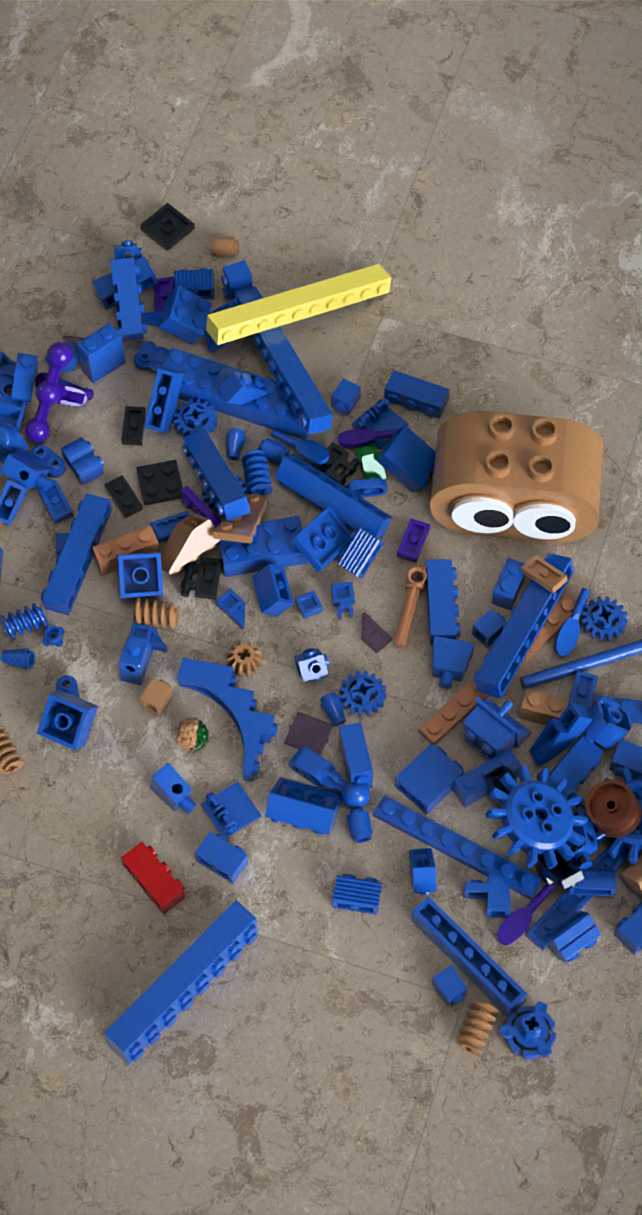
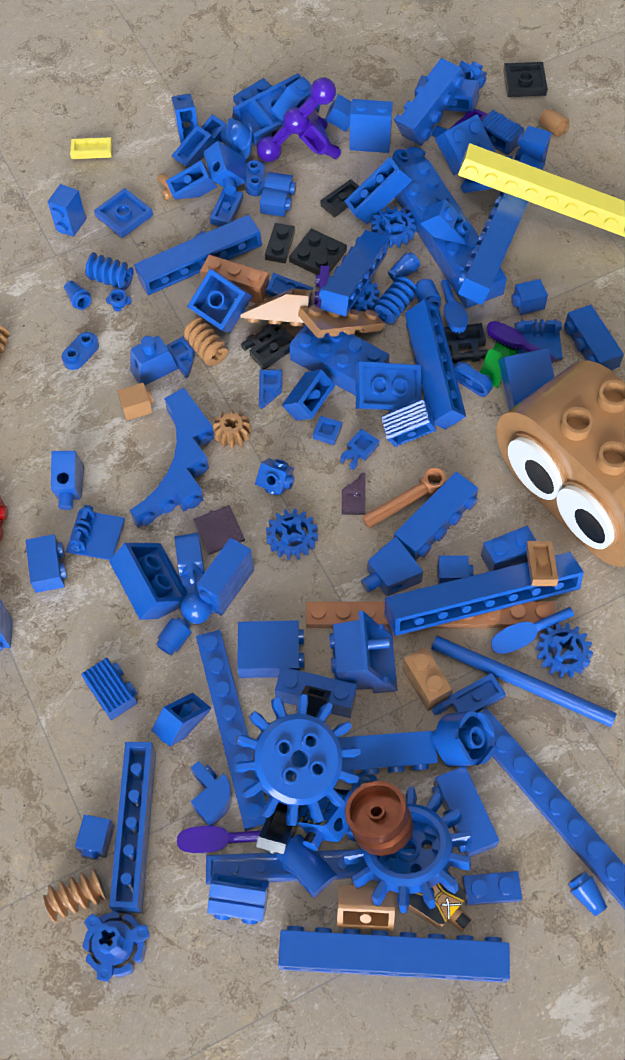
camera: 45 degrees right, 0 degrees up
(67, 719) = (51, 362): blue brick -> none
(192, 734) = (128, 450): medium nougat piece -> none
(333, 708) = (256, 525): blue cone -> none
(413, 540) = (466, 450): dark purple plate -> none
(560, 733) = (416, 711): blue slope -> none

